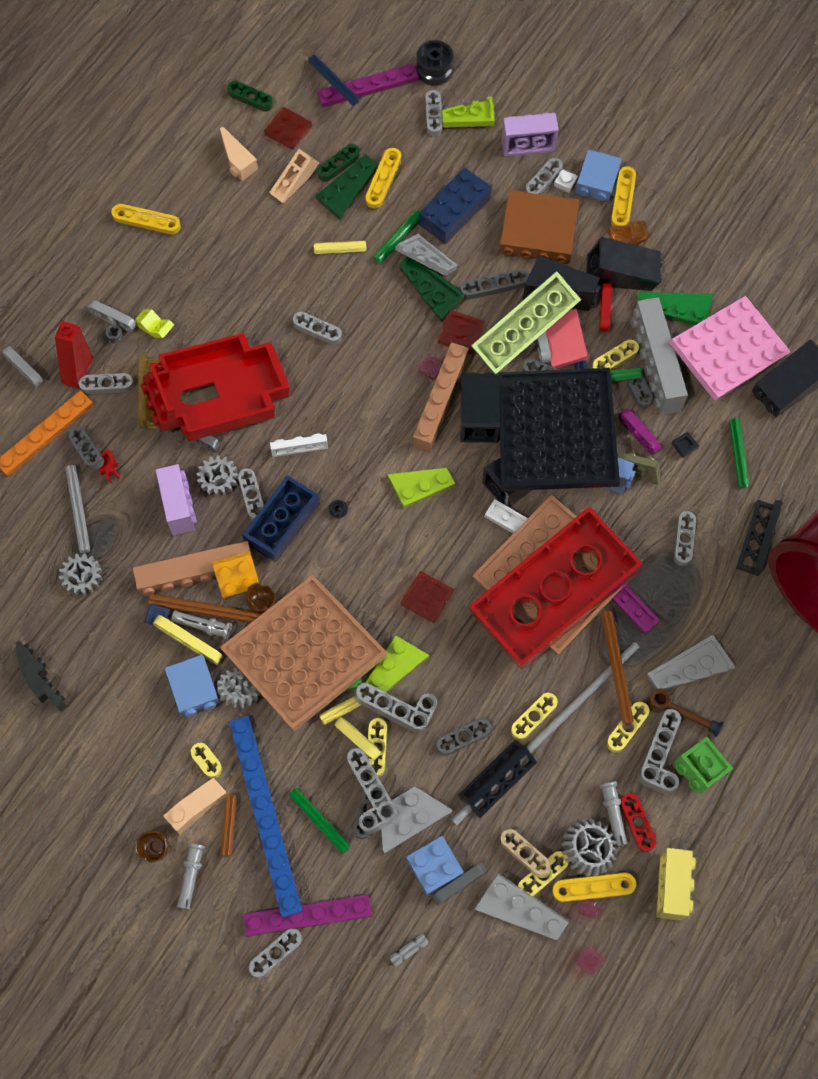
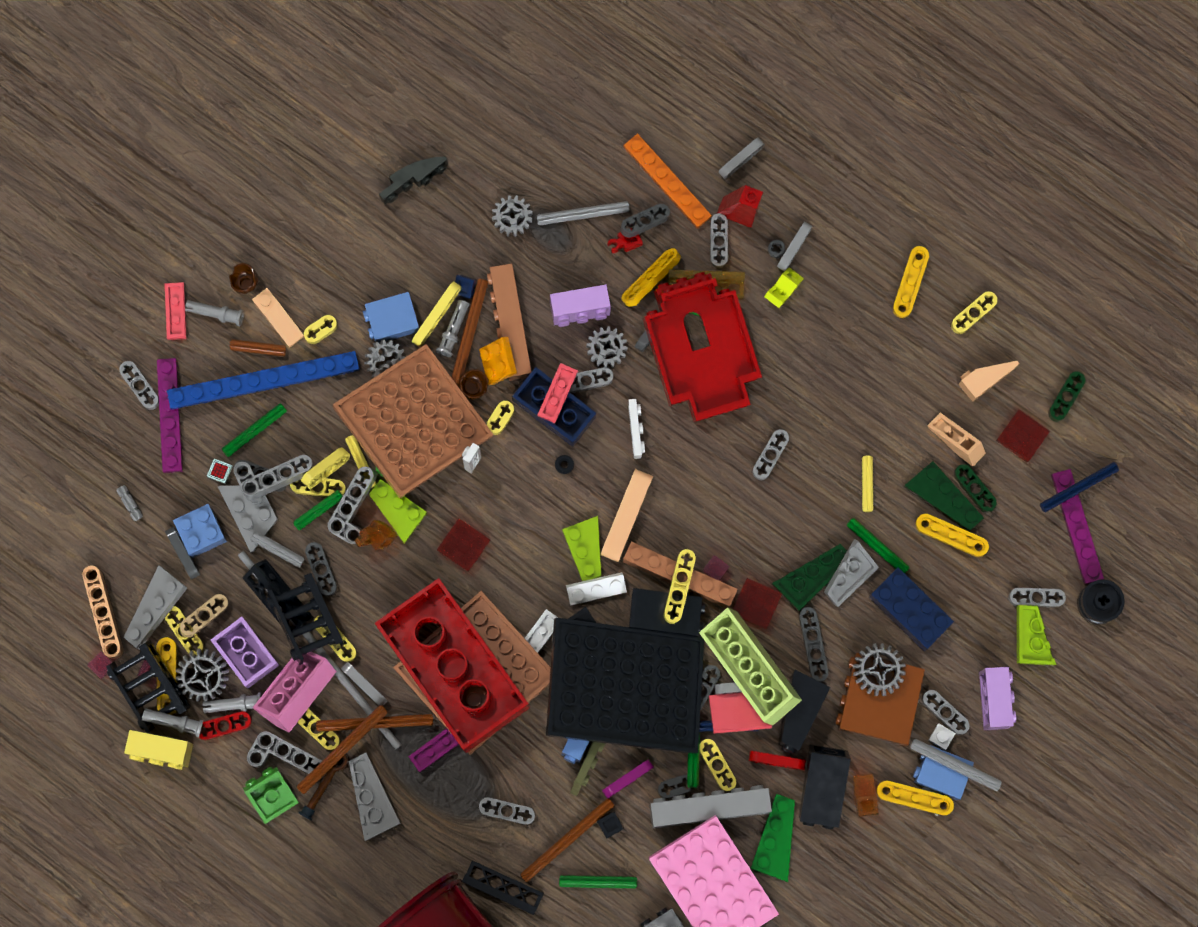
camera: 90 degrees right, 10 degrees up
(145, 440) = (651, 277): none -> yellow plate
(176, 176) = (967, 324): none -> light yellow beam
(189, 921) = (175, 311): none -> coral tile
(269, 510) = (557, 393): none -> coral tile
(295, 568) = (503, 420): none -> light yellow beam
(340, 587) = (471, 457): none -> white plate
(366, 853) = (219, 471): none -> tile
(385, 448) = (626, 515): none -> light nougat beam
(402, 743) = (318, 510): none -> green axle
(425, 679) = (377, 534): none -> clear orange brick
(447, 782) = (277, 549): none -> light grey axle
(455, 384) = (679, 586): none -> light yellow beam
(460, 471) = (596, 588): none -> white plate
(503, 732) = (316, 603): none -> black fence
(511, 229) = (880, 678): none -> light grey gear
(543, 963) = (96, 605): none -> light nougat beam
(561, 804) = (244, 652): none -> lavender brick
(578, 682) = (352, 673): none -> light grey beam
(592, 892) = (157, 669): none -> black fence
(593, 160) = (955, 764): none -> light grey axle
(593, 748) = (294, 690): none -> bright pink slope
(645, 862) = (182, 723): none -> light grey pin
(650, 692) = (342, 749): none -> dark orange axle
(704, 482) = (567, 839): none -> dark orange axle

